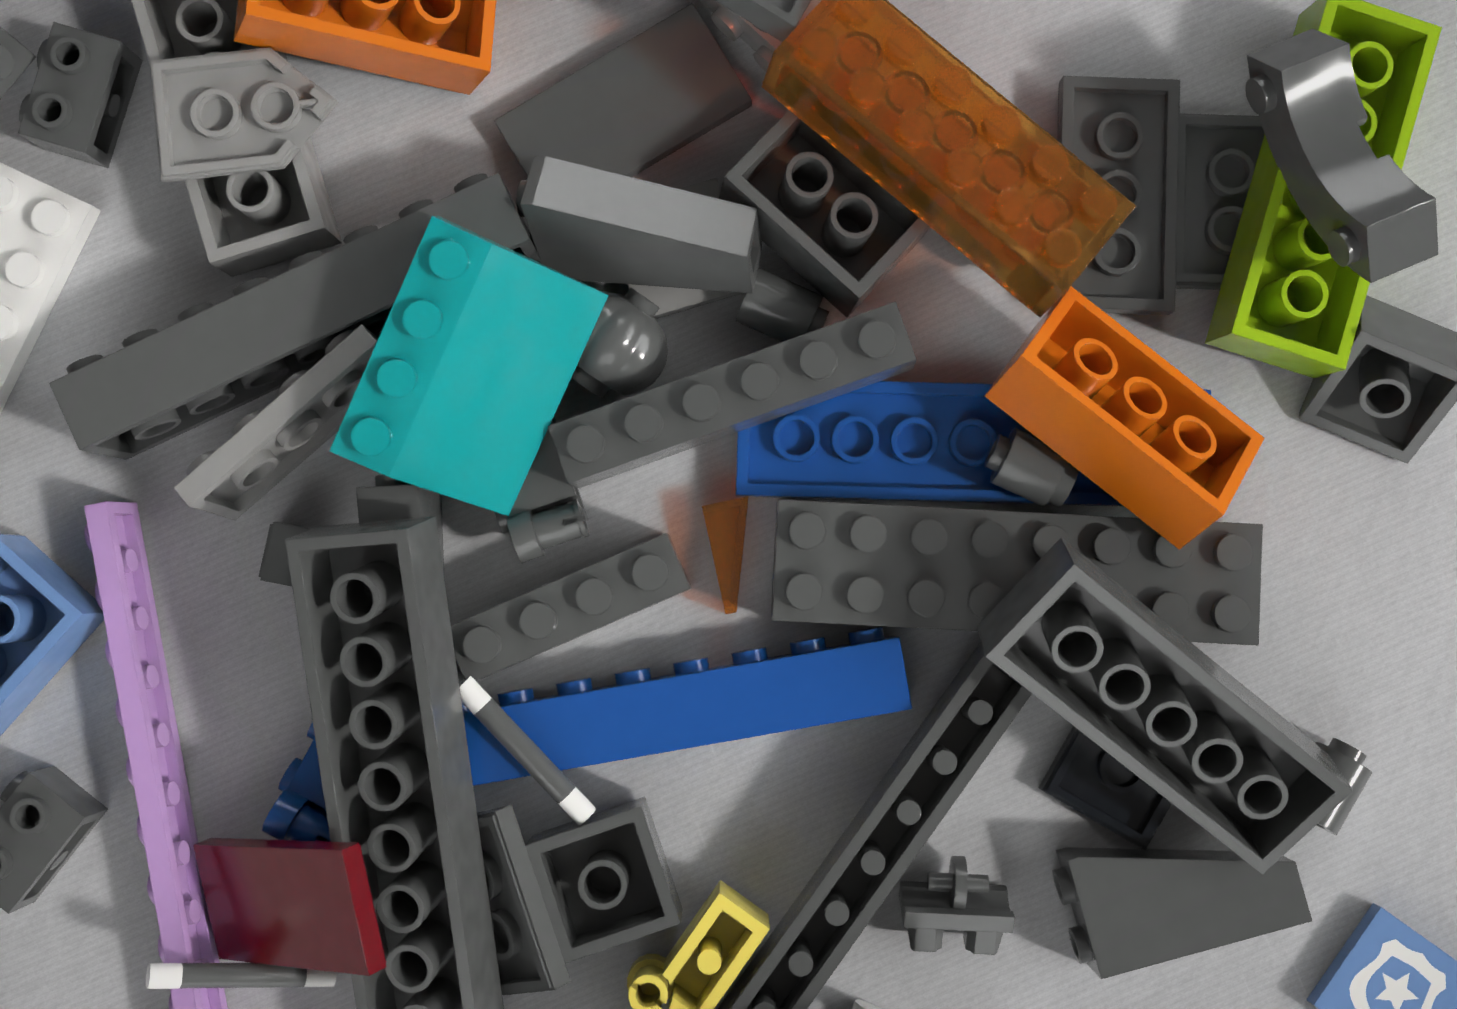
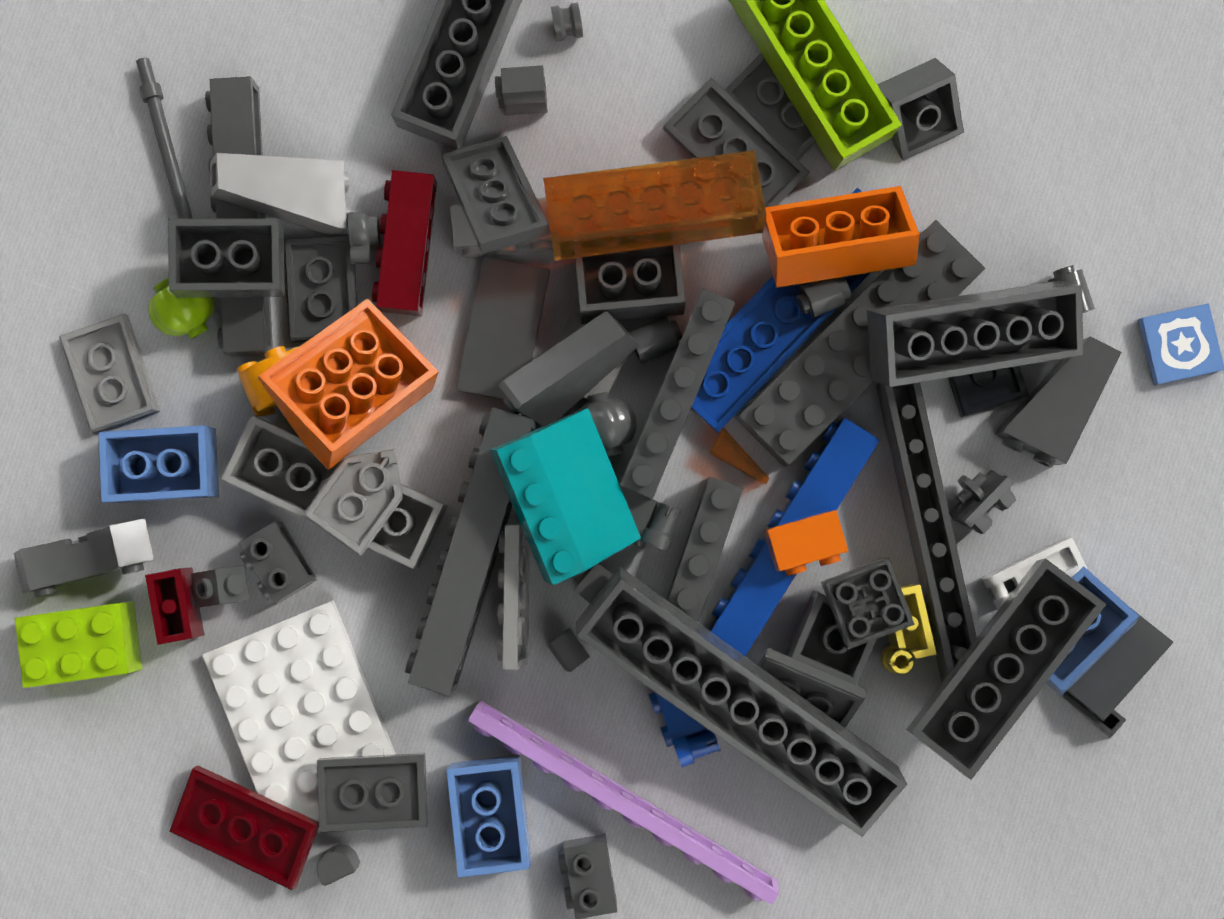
camera: 55 degrees left, 0 degrees up
(233, 976) = (735, 833): dark grey bar -> none
(291, 904) = (725, 781): dark red tile -> none
(525, 751) = (759, 621): dark grey bar -> none
(683, 882) = (867, 603): none -> dark grey tile
(691, 732) = (806, 541): none -> orange brick
(1312, 120) = (836, 57): dark grey brick -> none

